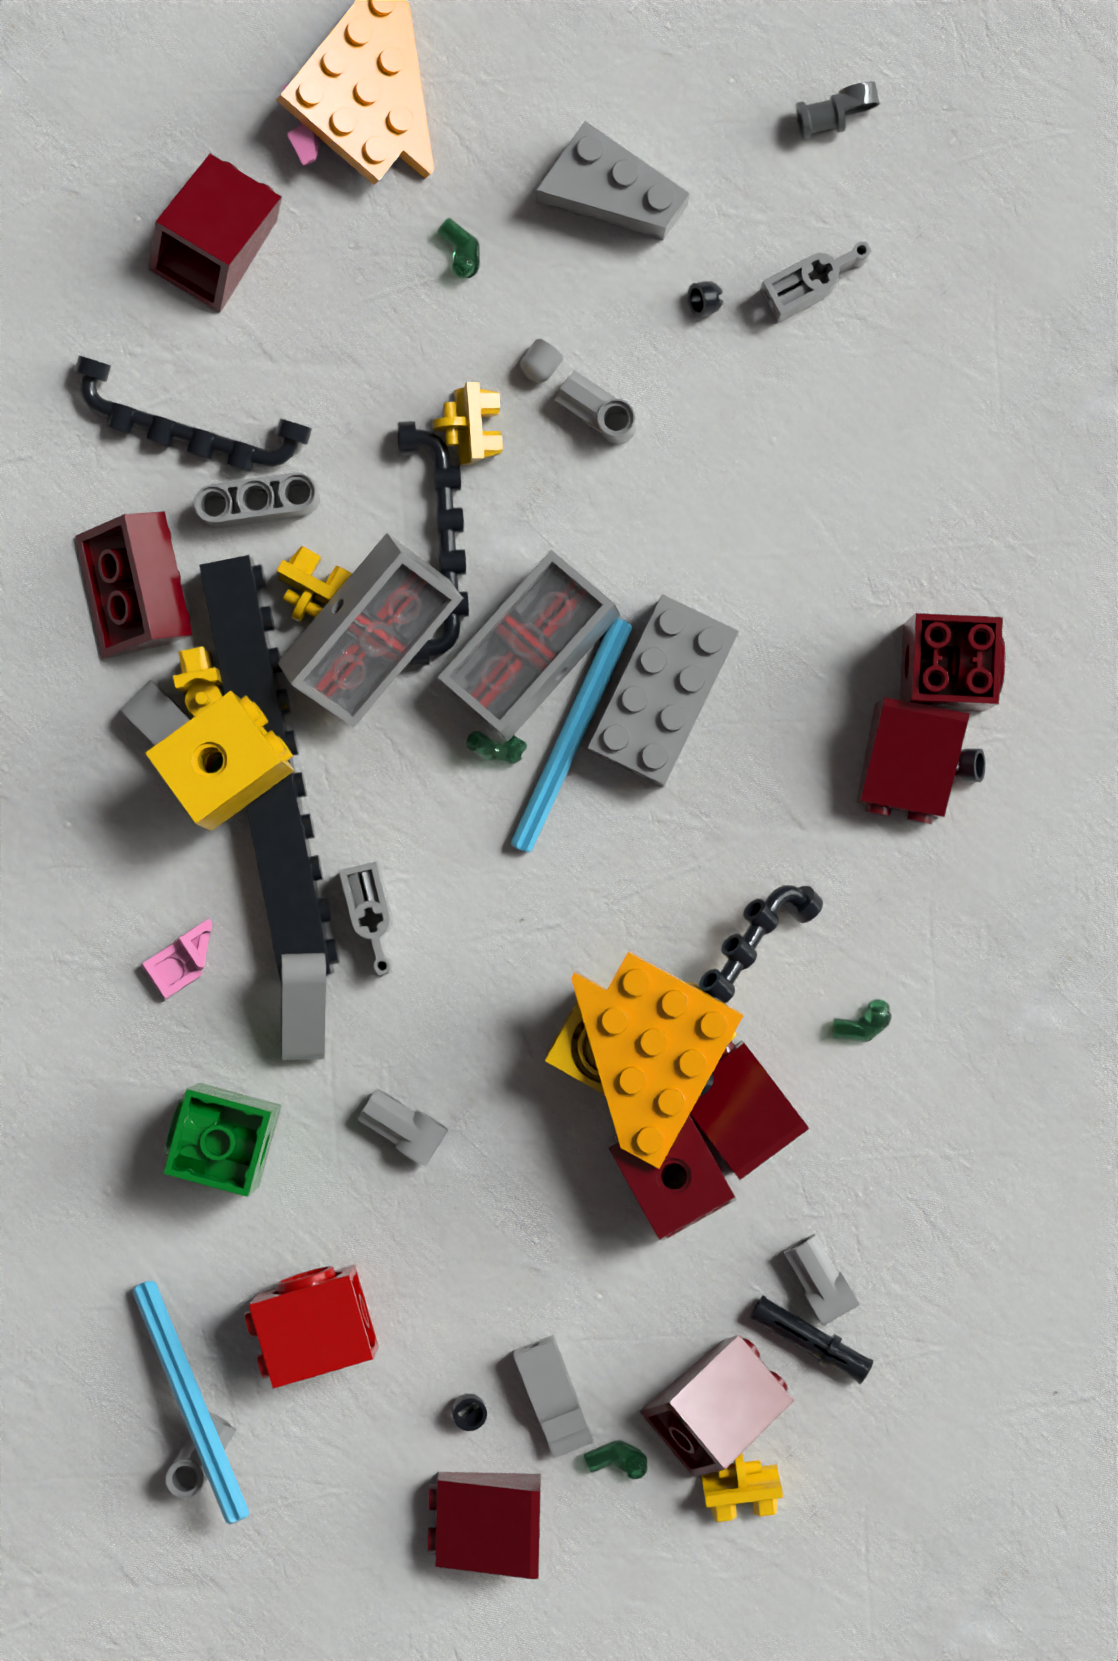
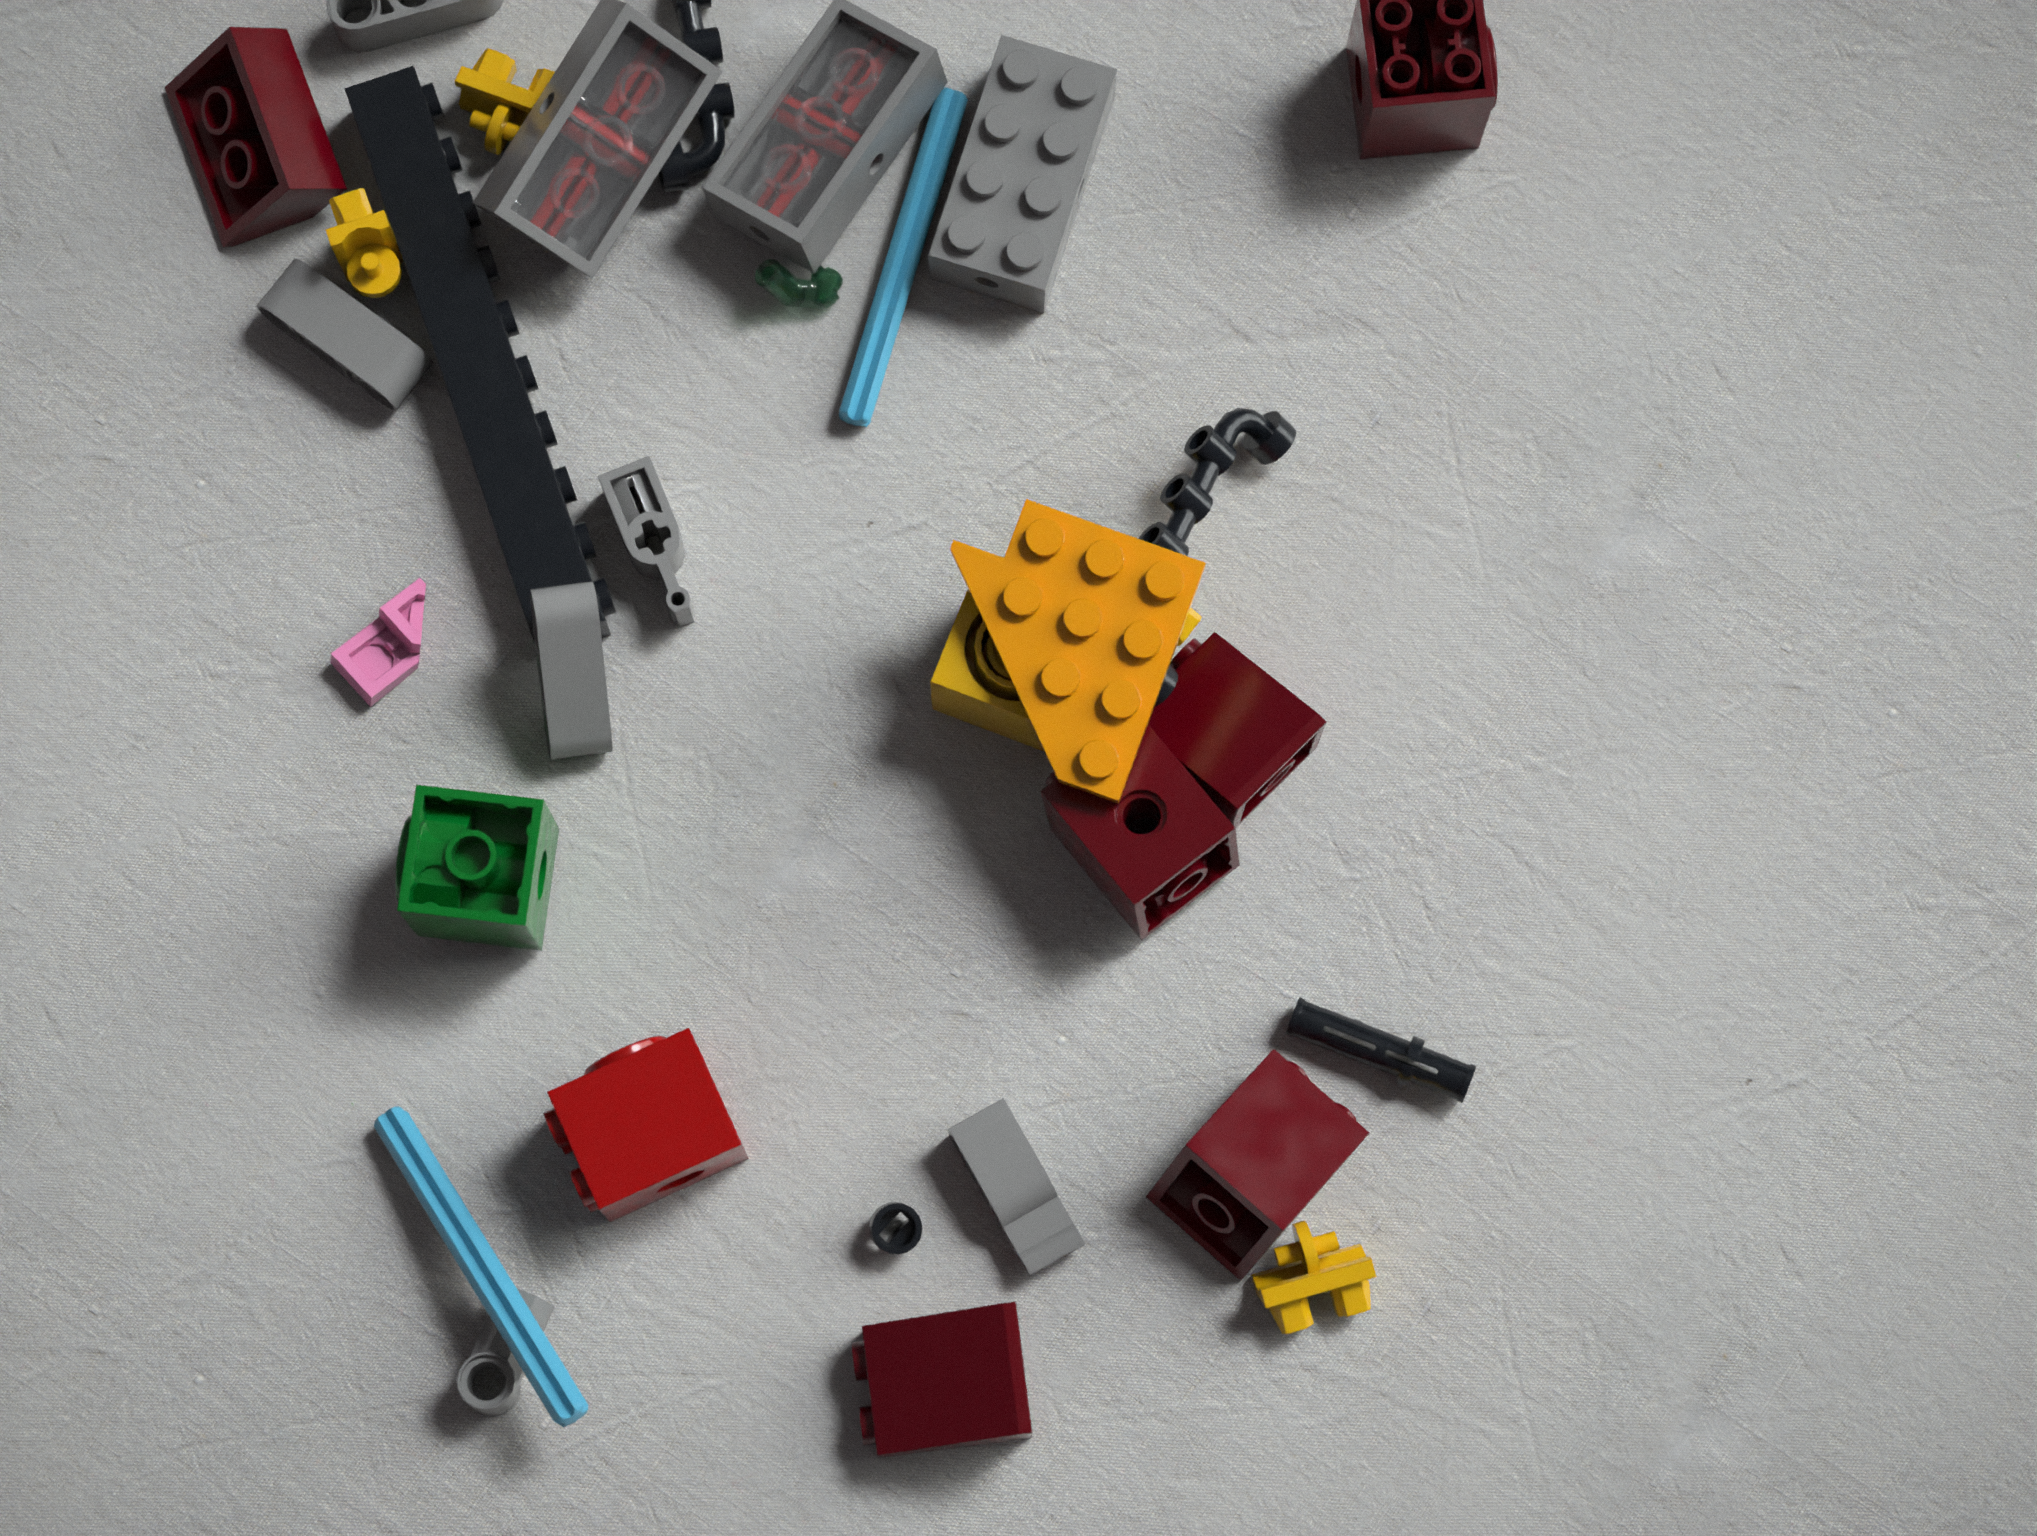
camera: 10 degrees left, 10 degrees down
(250, 755) = (410, 327): yellow brick -> none
(411, 1131) = (754, 836): light grey piece -> none
(619, 1454) = (1127, 1262): clear green arm -> none
(824, 1286) = (1390, 974): light grey piece -> none
(867, 1026) = (1386, 597): clear green arm -> none
(911, 759) = (1387, 210): dark red slope -> none
(971, 765) = (1472, 216): black hinge -> none

